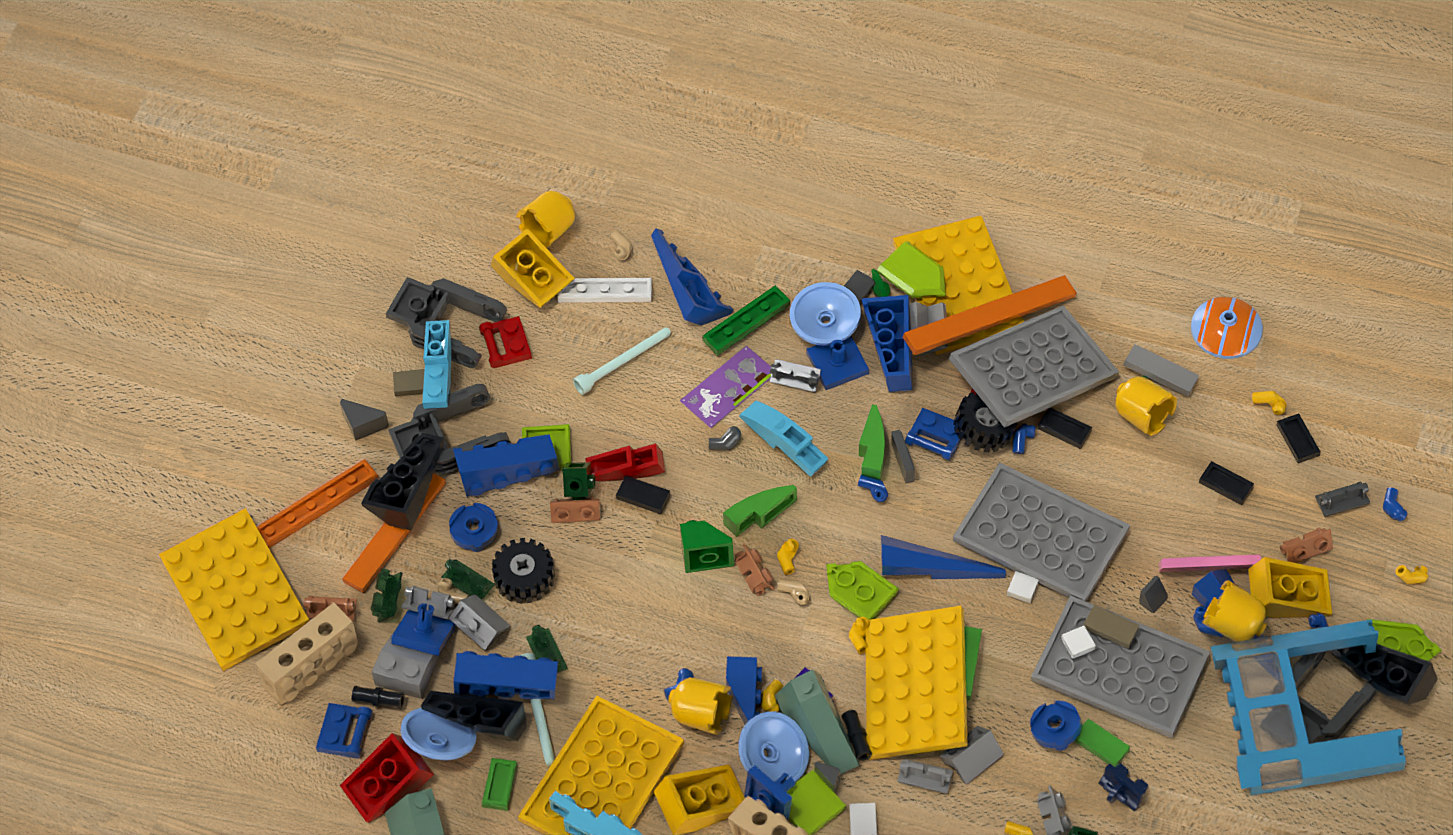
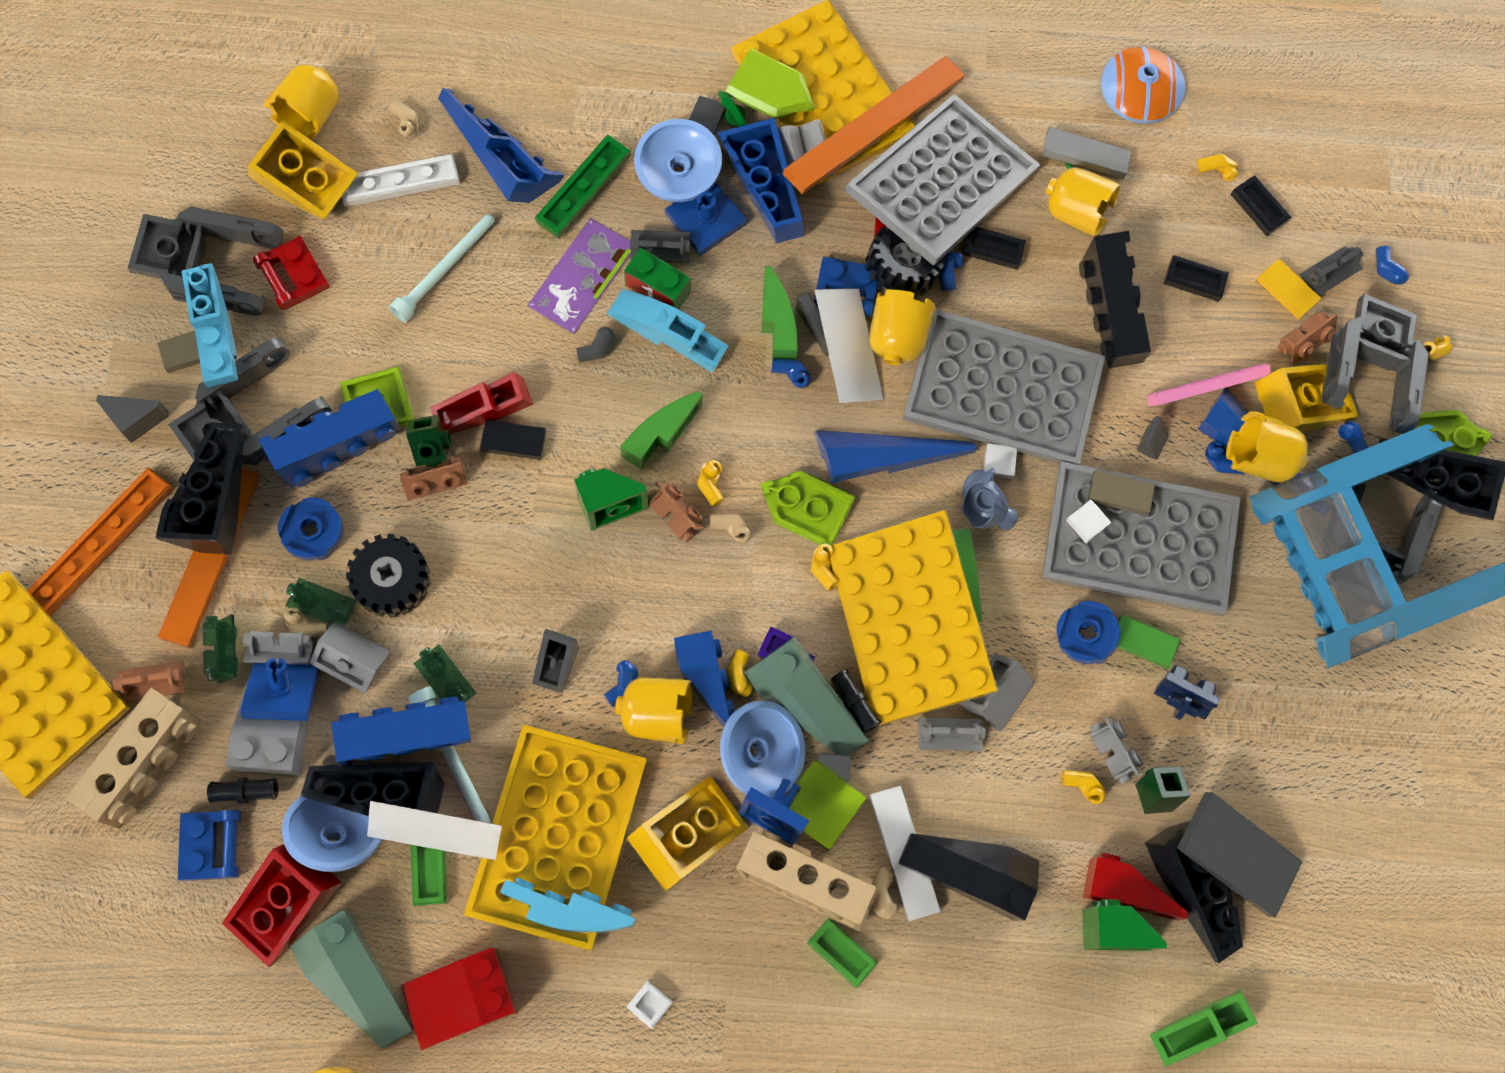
camera: 25 degrees left, 15 degrees up
(511, 745) = (433, 830): none -> white sticker
(633, 655) = (555, 660): none -> dark grey slope
(785, 398) = (657, 279): none -> green brick
(923, 475) = (848, 345): none -> white sticker
(967, 469) = (900, 326): none -> yellow cylinder
(1001, 614) = (986, 503): none -> sand blue hair
(1149, 484) = (1115, 300): none -> black wedge
(1302, 506) = (1288, 289): none -> yellow tile
(1363, 554) = (1385, 339): none -> dark grey plate

